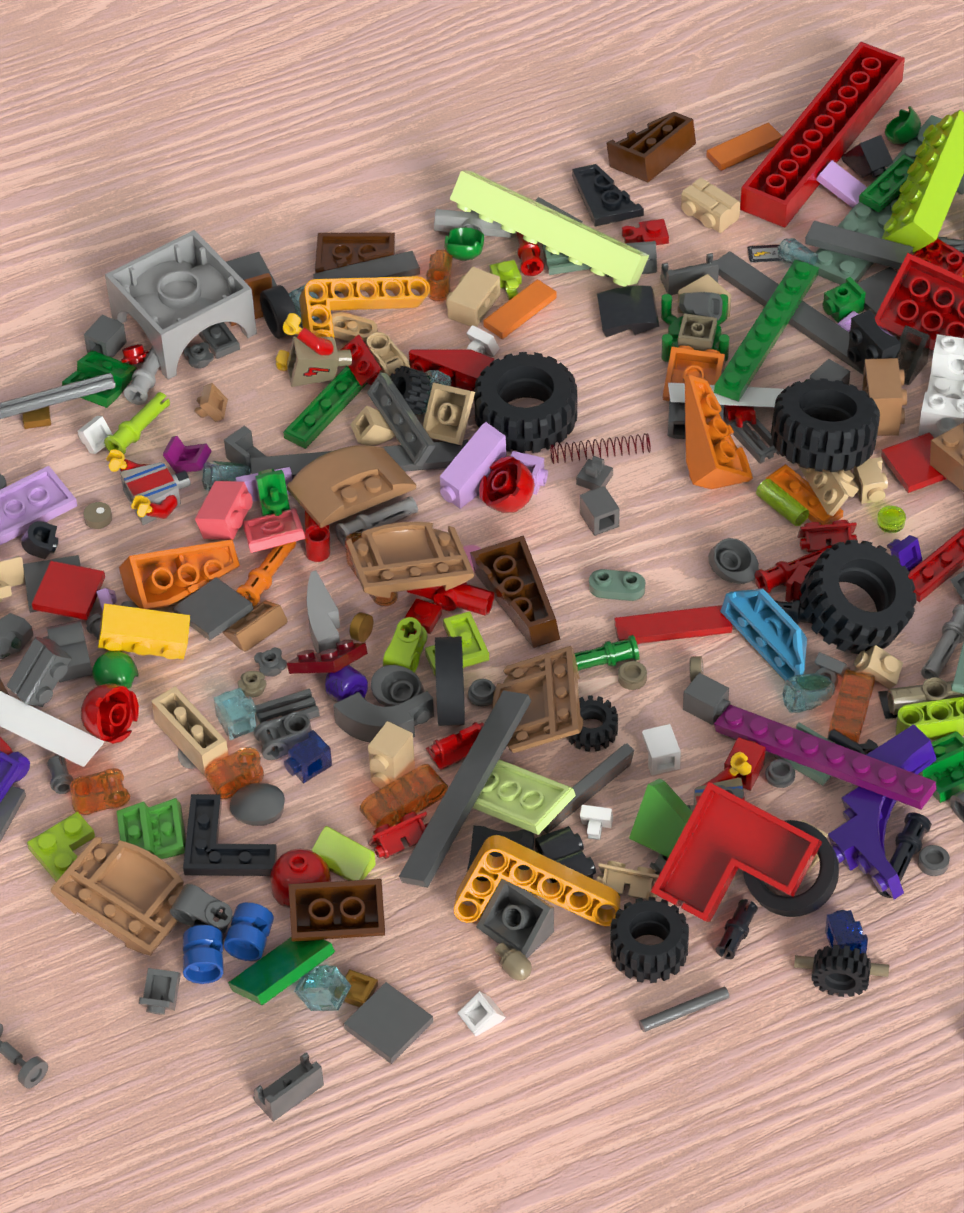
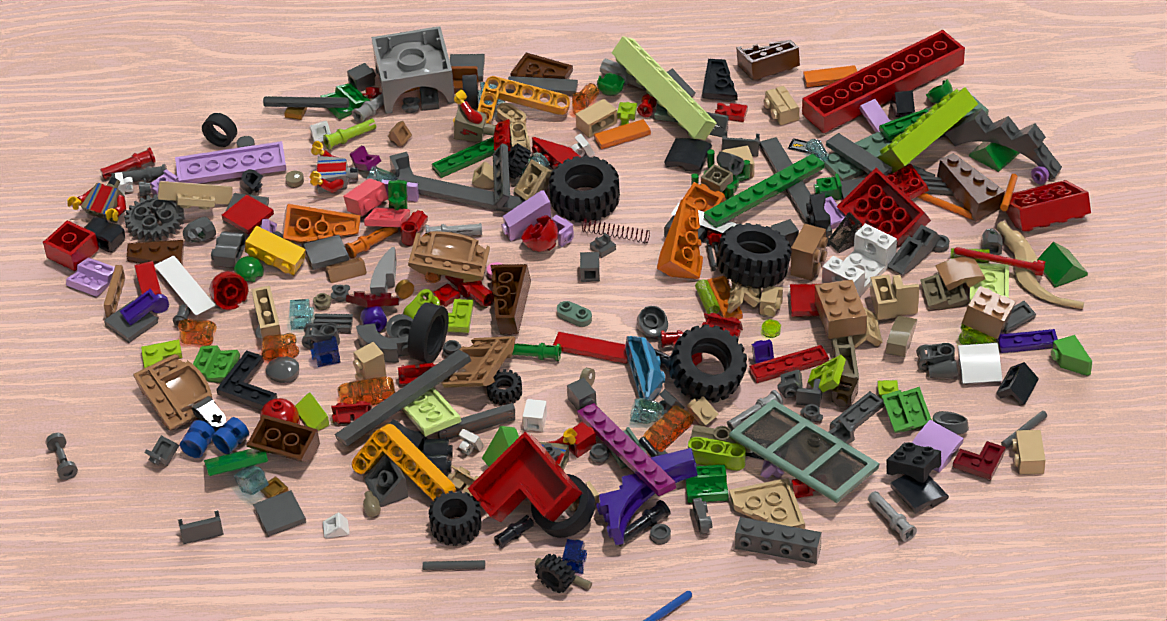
camera: 25 degrees right, 5 degrees down
(39, 672) = (201, 254): dark grey brick -> none
(348, 483) = (447, 203): medium nougat slope -> none
(632, 675) = (548, 368): dark tan tile -> none

